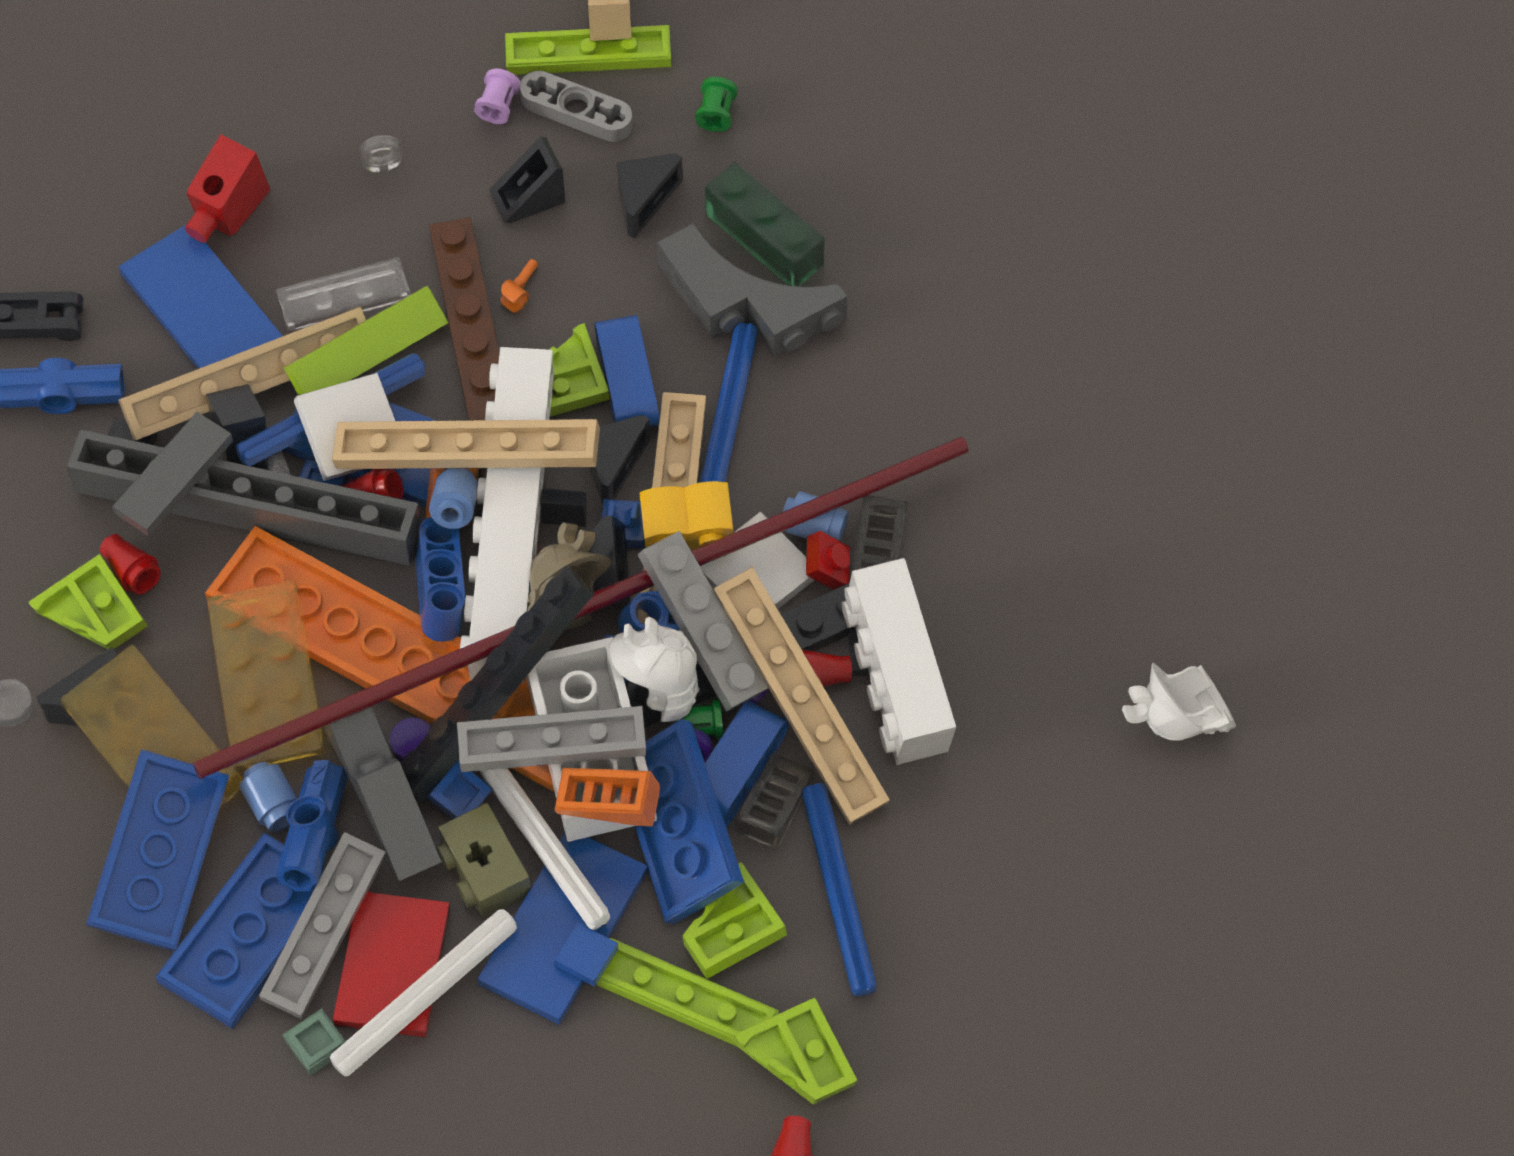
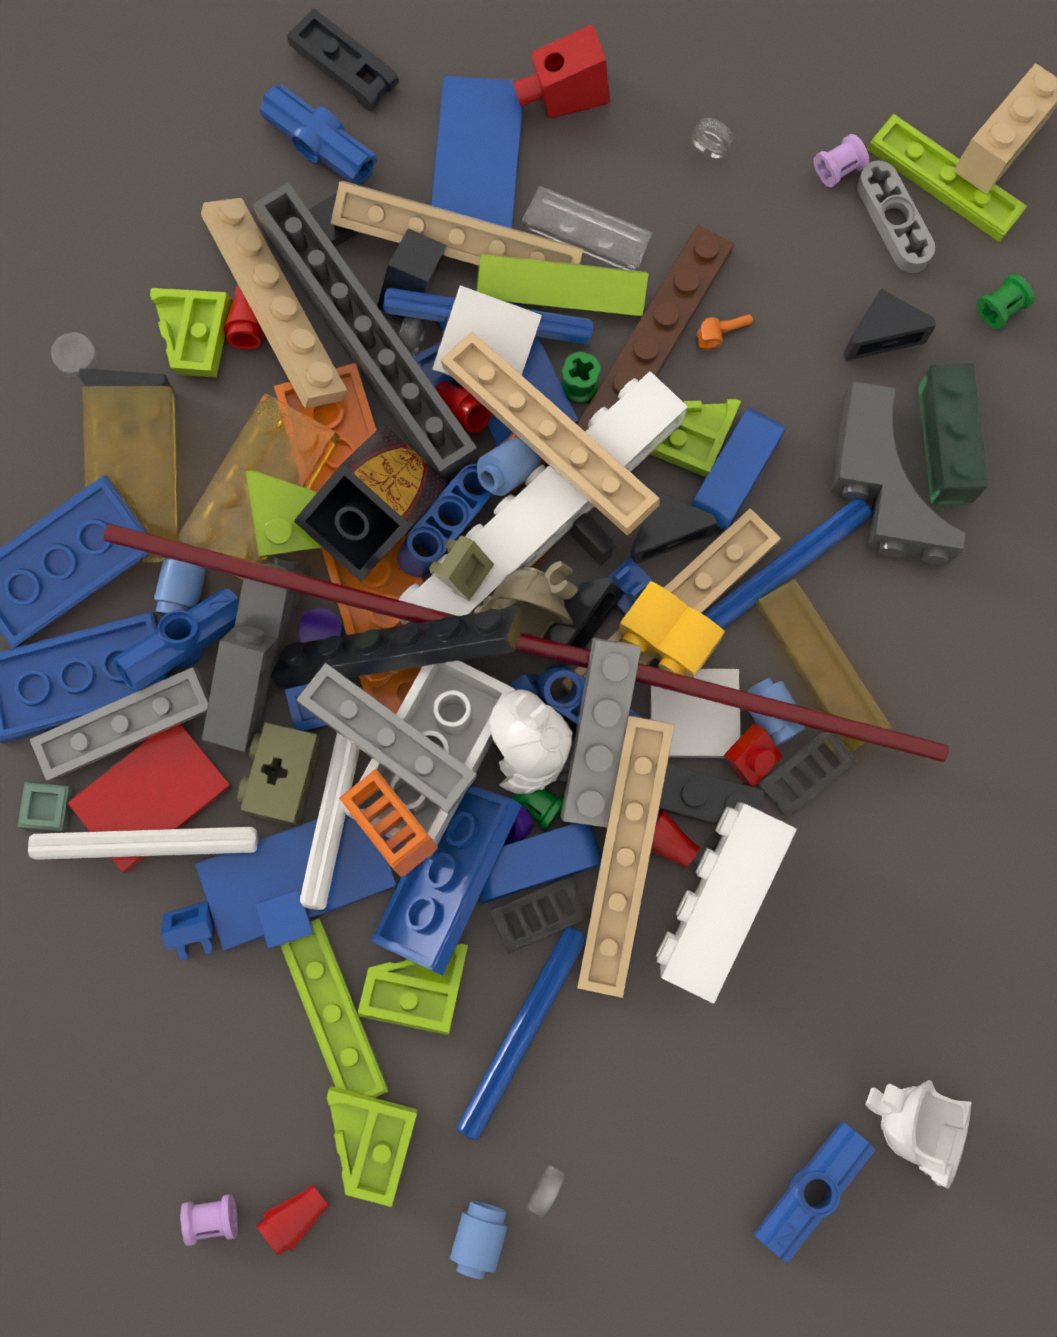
camera: 40 degrees right, 15 degrees up
(172, 473) = (318, 273): dark grey tile -> none
(172, 539) = (273, 303): none -> tan plate
(318, 664) = (273, 511): none -> lime wing
(376, 602) = (371, 502): none -> black slope
(444, 398) = (587, 368): none -> green bush
(494, 585) = (463, 567): none -> olive tile
(515, 1023) = (188, 926): none -> blue tile
(530, 184) = (801, 252): black slope -> none
(809, 456) = (819, 658): none -> clear yellow plate
(942, 1047) = (479, 1239): none -> medium blue brick
(958, 974) = (546, 1191): none -> clear tile
(1147, 836) = (792, 1217): none -> blue piece

